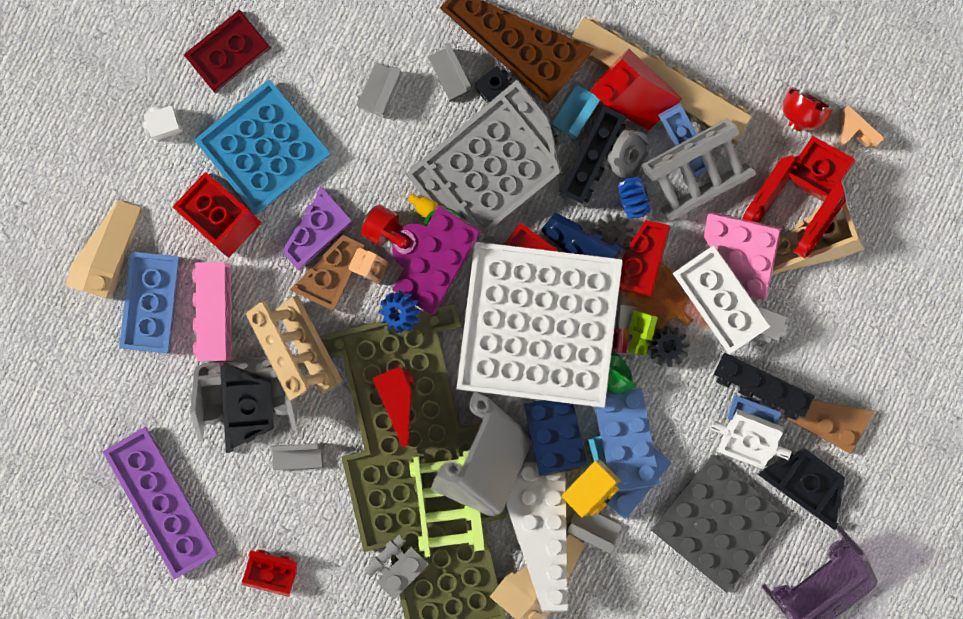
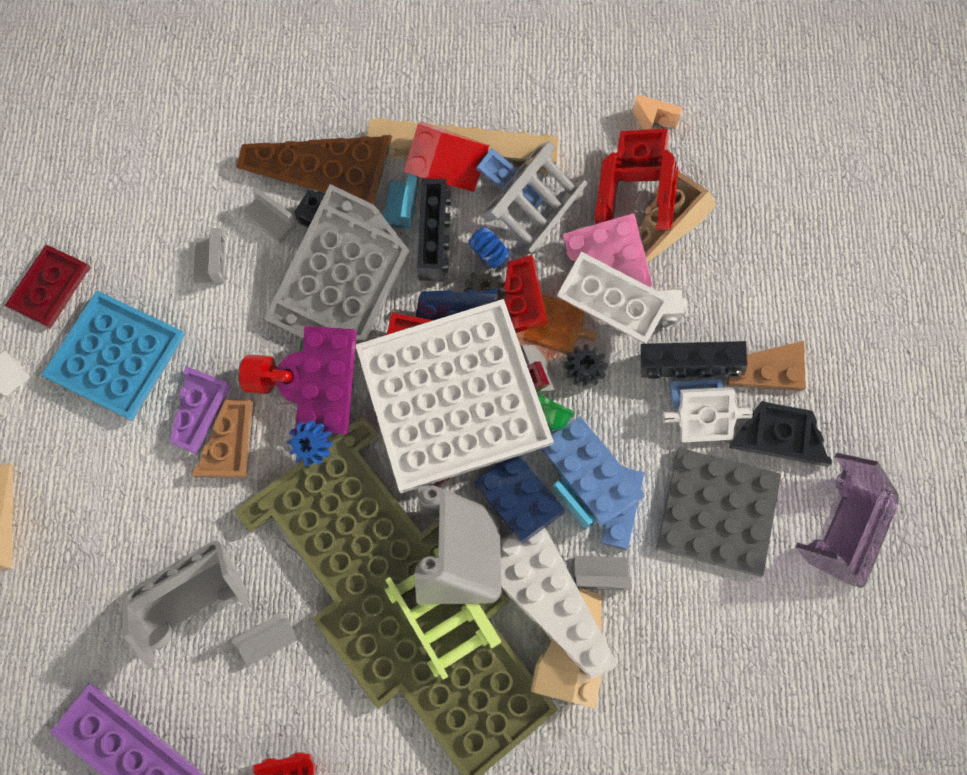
camera: 25 degrees left, 15 degrees down
(149, 302) = (50, 553): medium blue plate -> none
(213, 311) = (119, 531): bright pink brick -> none
(217, 214) = (92, 436): red slope -> none
(245, 405) = (188, 610): black wing -> none
(307, 341) = (222, 511): tan fence -> none
(369, 265) = (263, 415): light nougat slope -> none
(397, 398) = (335, 516): red slope -> none
(403, 570) = (426, 711): light grey plate -> none
(423, 205) = (291, 341): yellow cylinder -> none
(591, 489) = (580, 527): yellow brick -> none
(628, 143) = (464, 212): light grey plate -> none
(642, 329) = (552, 359): lime plate -> none
(804, 110) = (602, 115): red cylinder -> none

